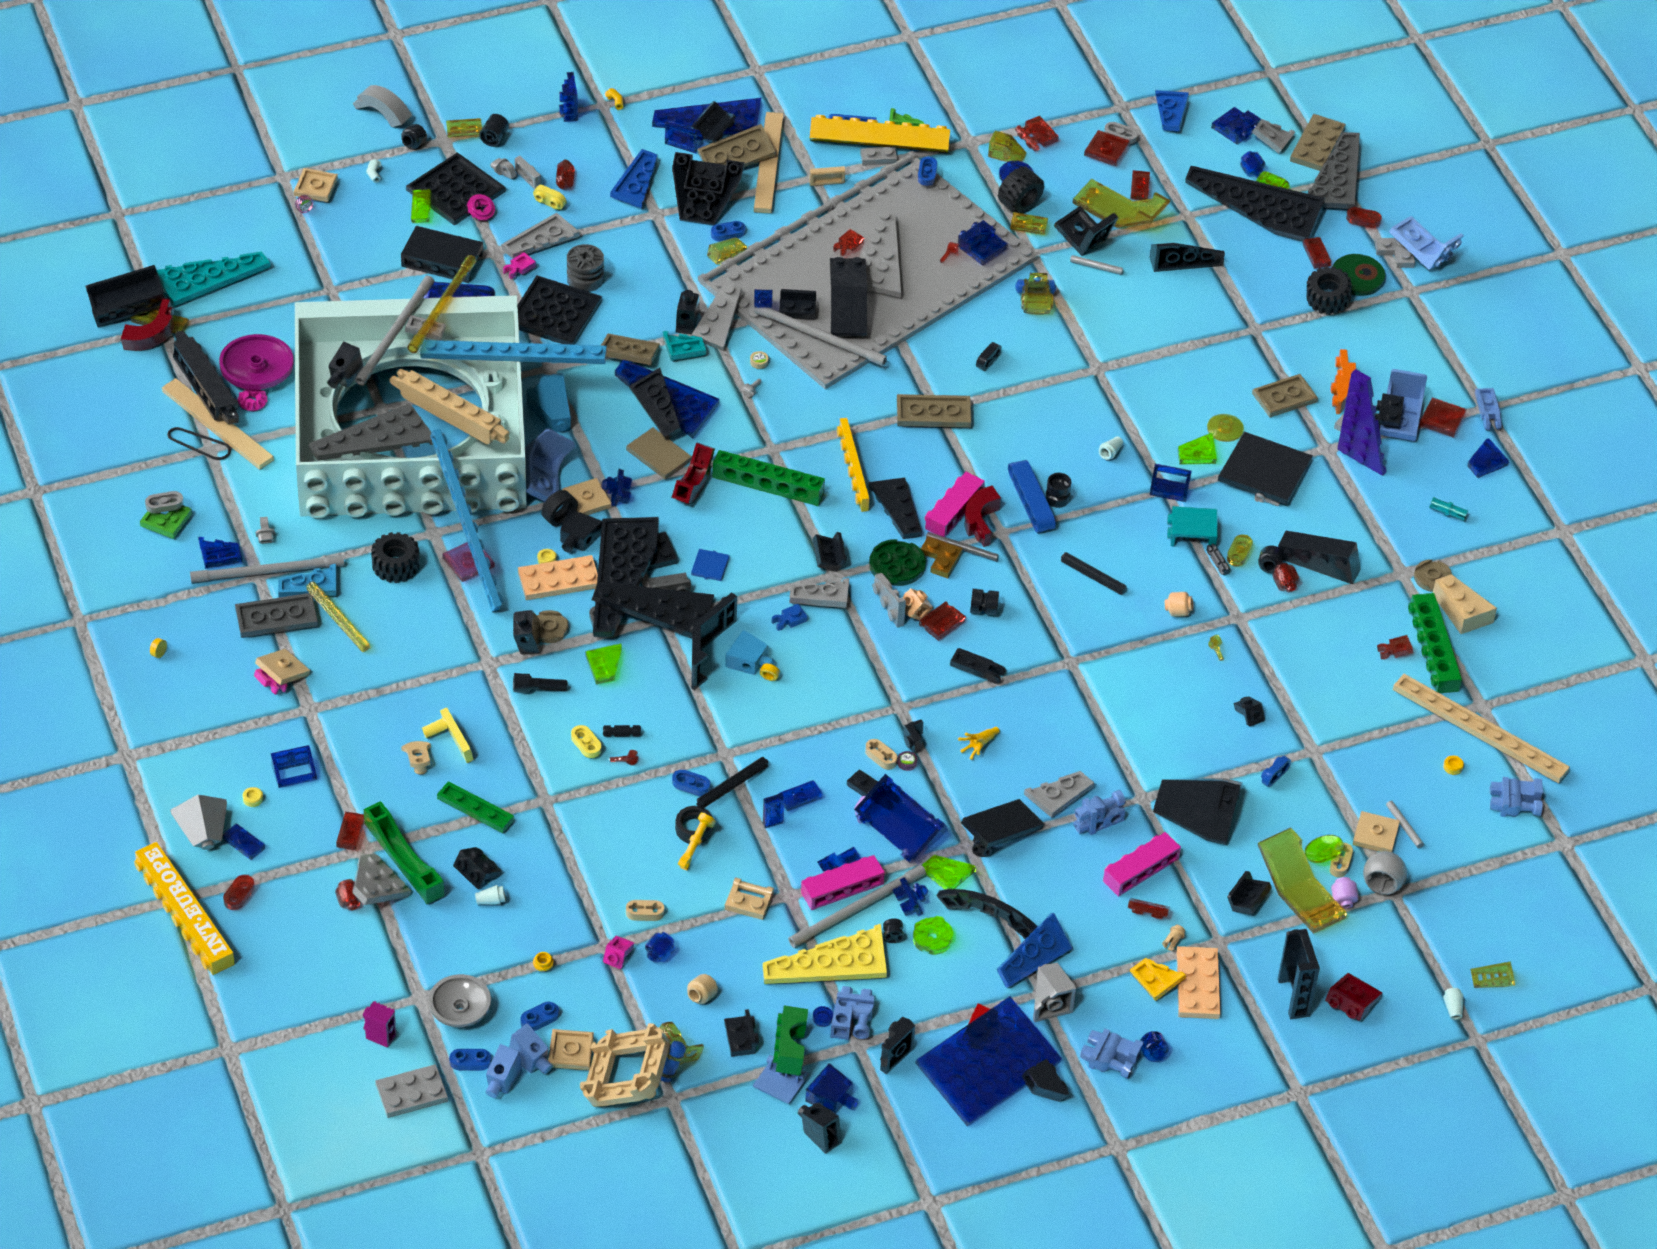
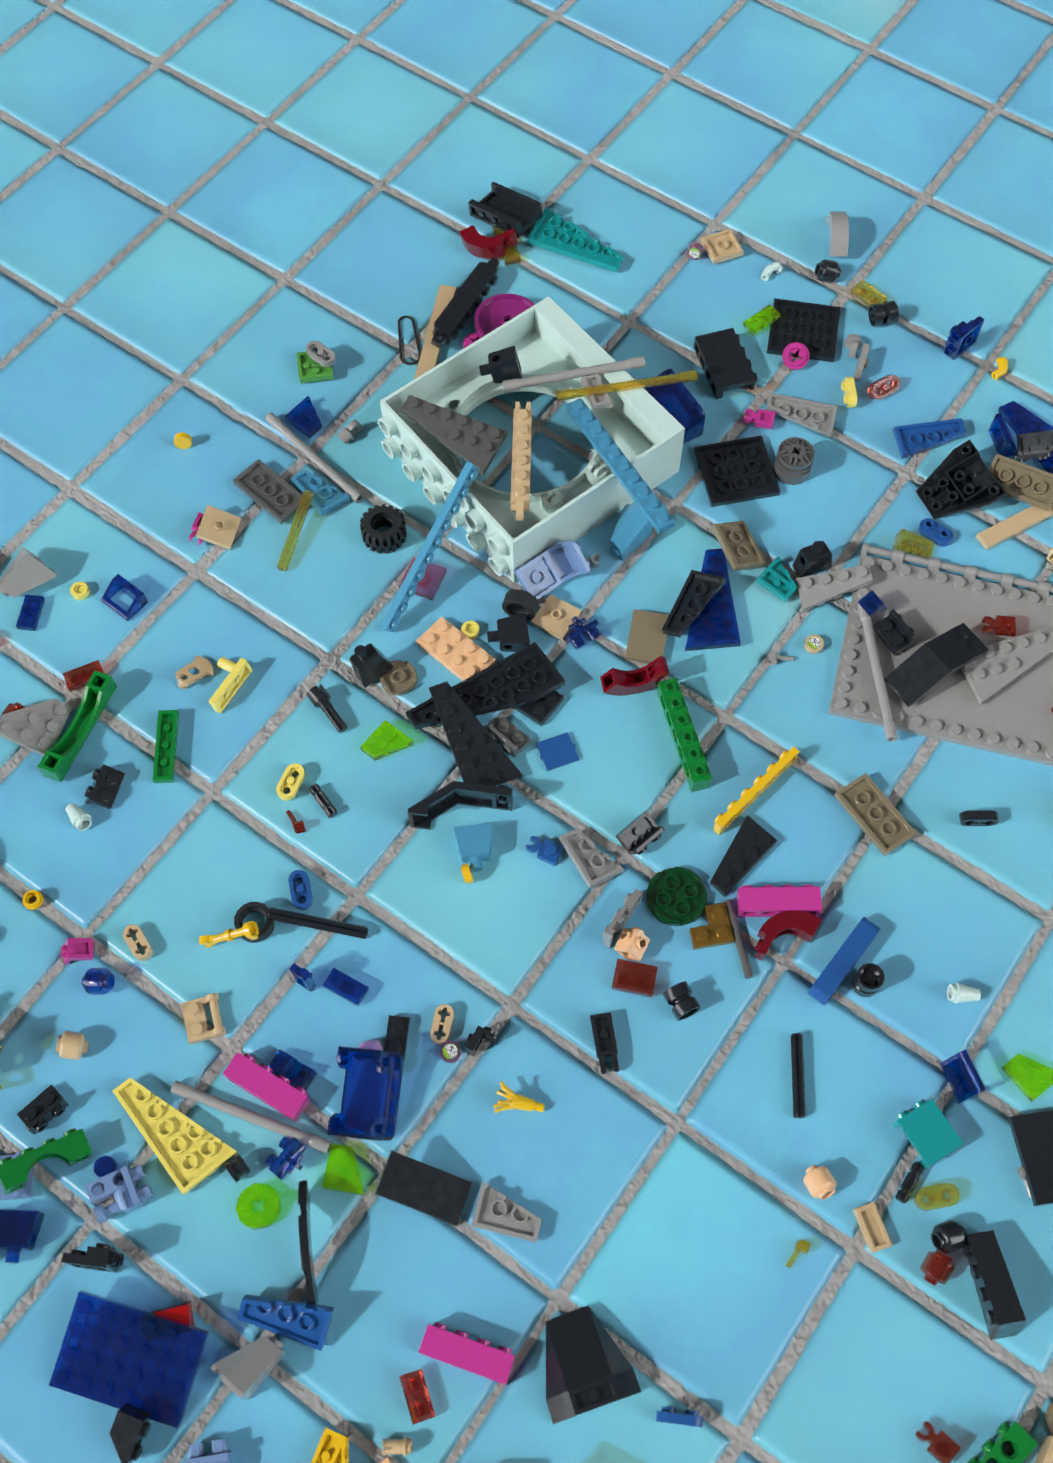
camera: 60 degrees right, 15 degrees up
(1099, 813) = (496, 1274): medium blue hips -> none
(1232, 598) = (872, 1227): none -> tan tile
(1251, 709) = (740, 1339): black bracket -> none

